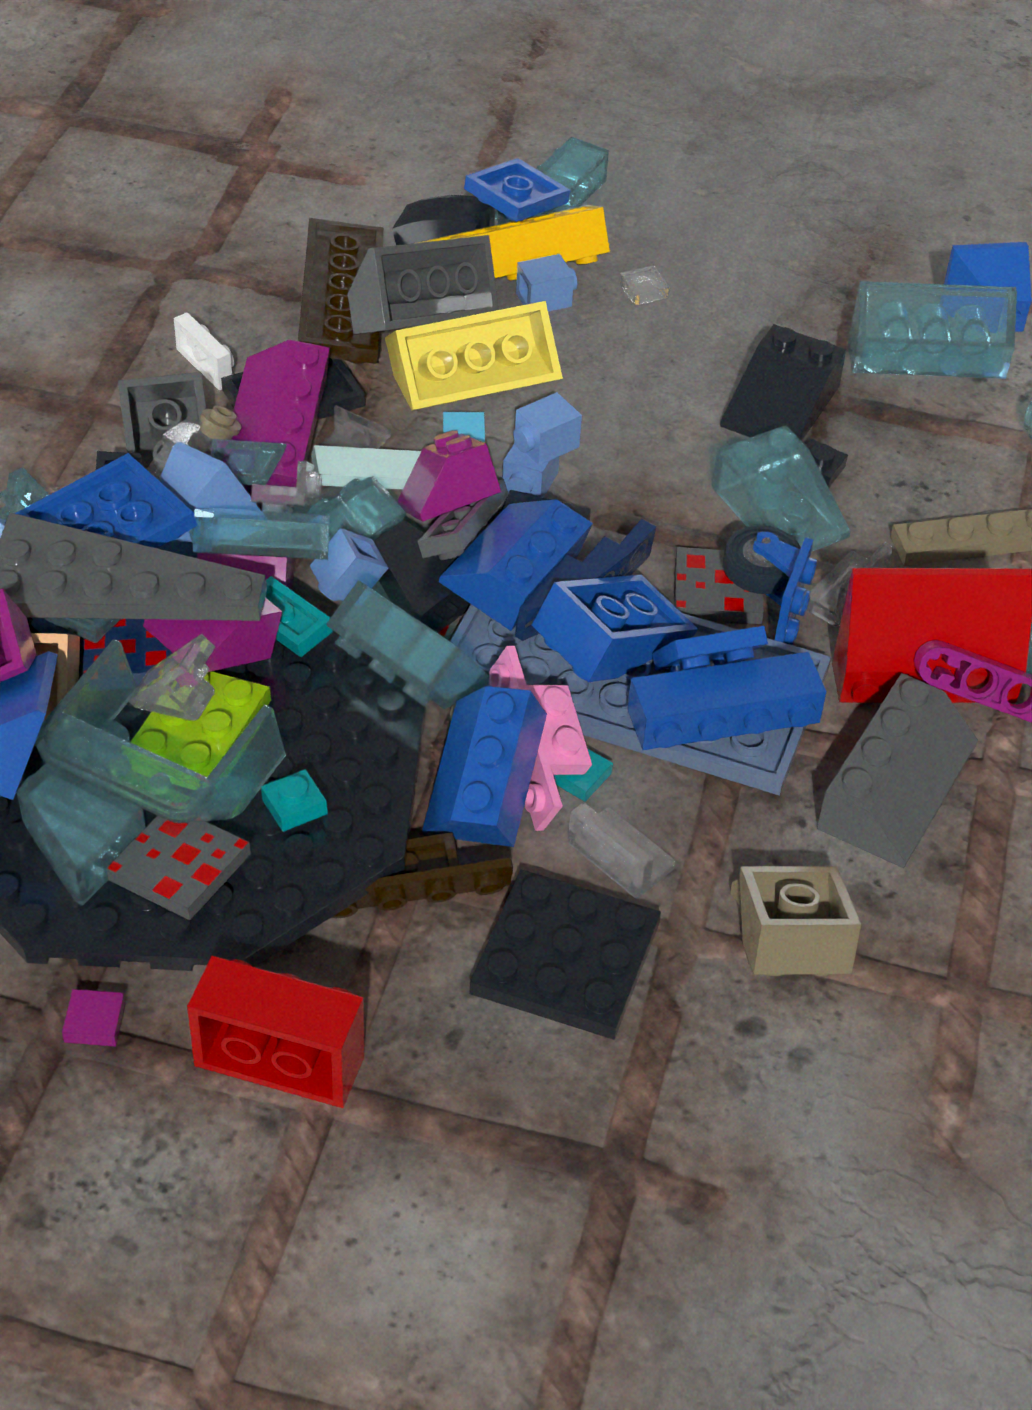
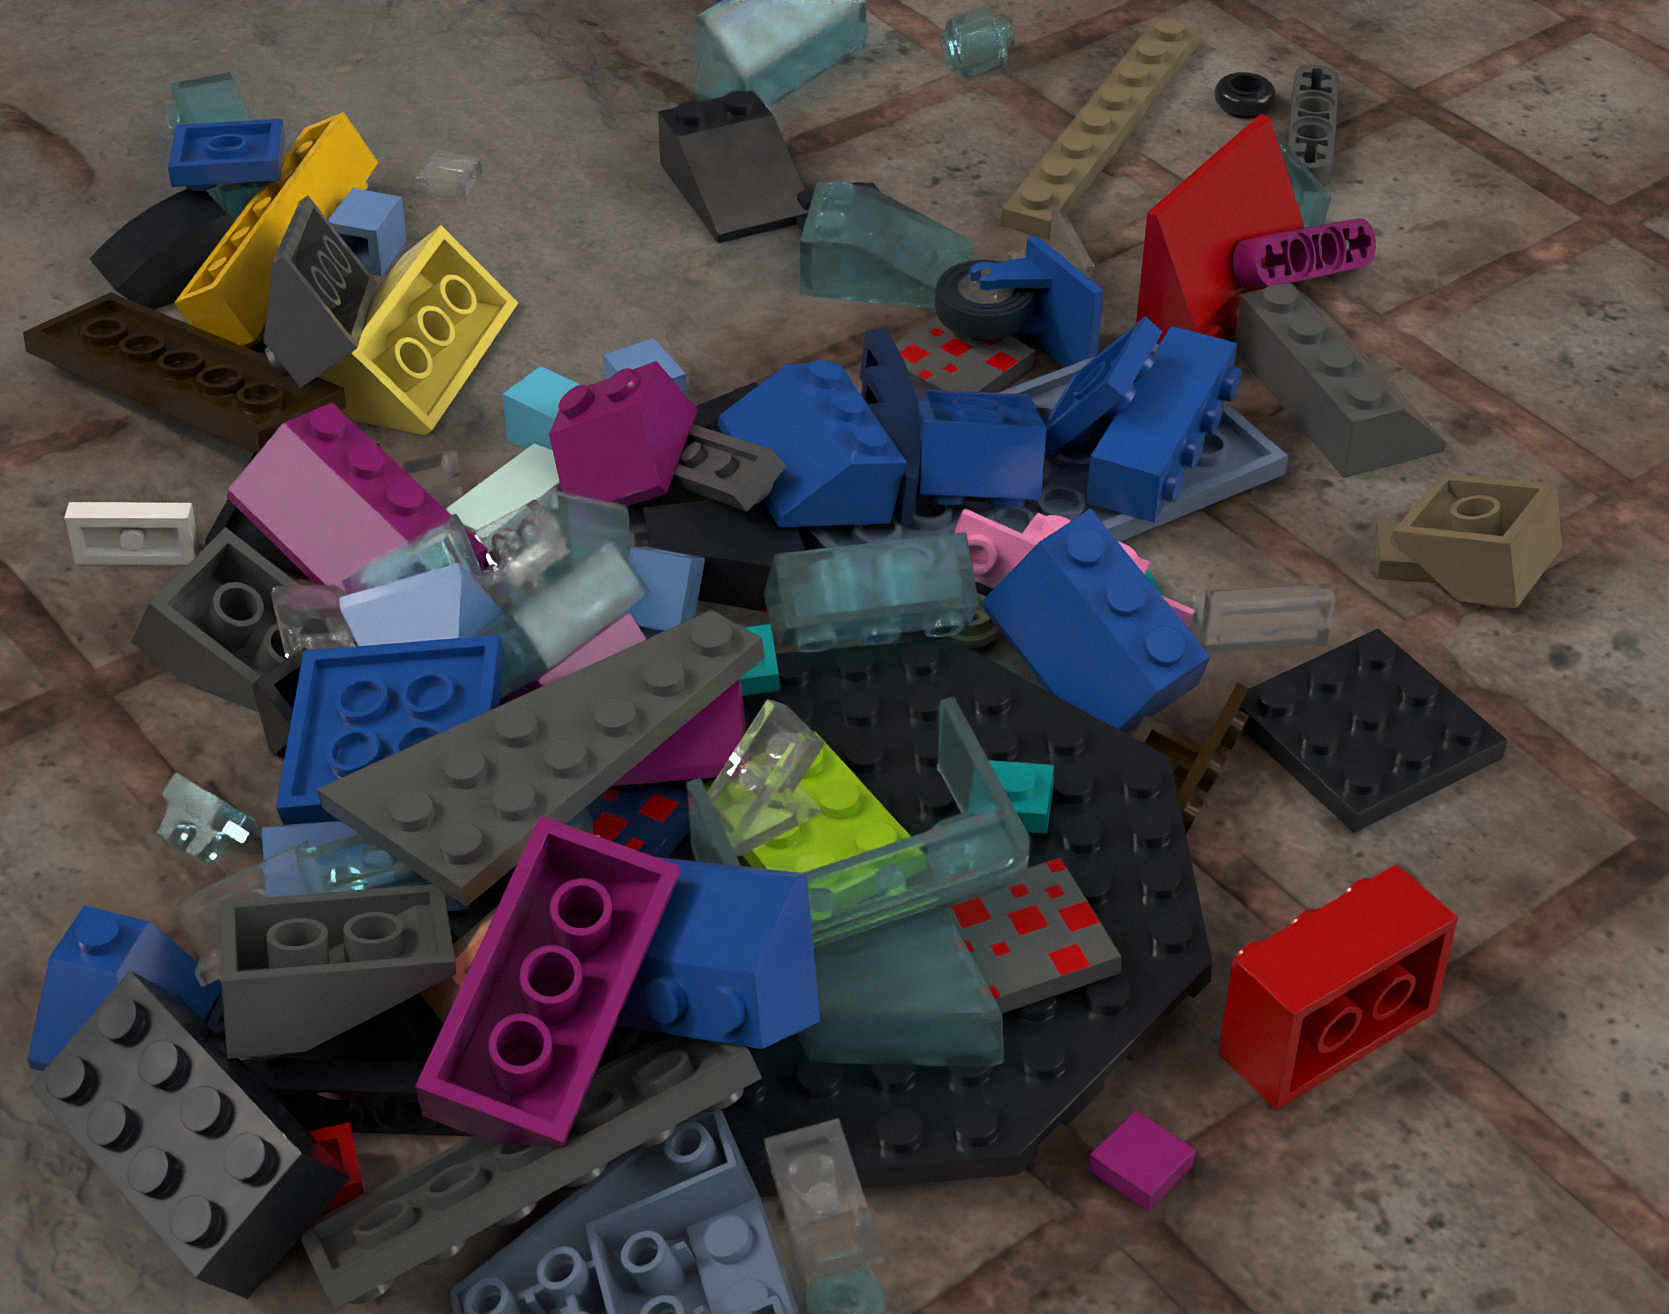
camera: 50 degrees left, 5 degrees down
(219, 423) = (319, 564): dark tan plate -> none
(547, 428) = (645, 324): medium blue brick -> none

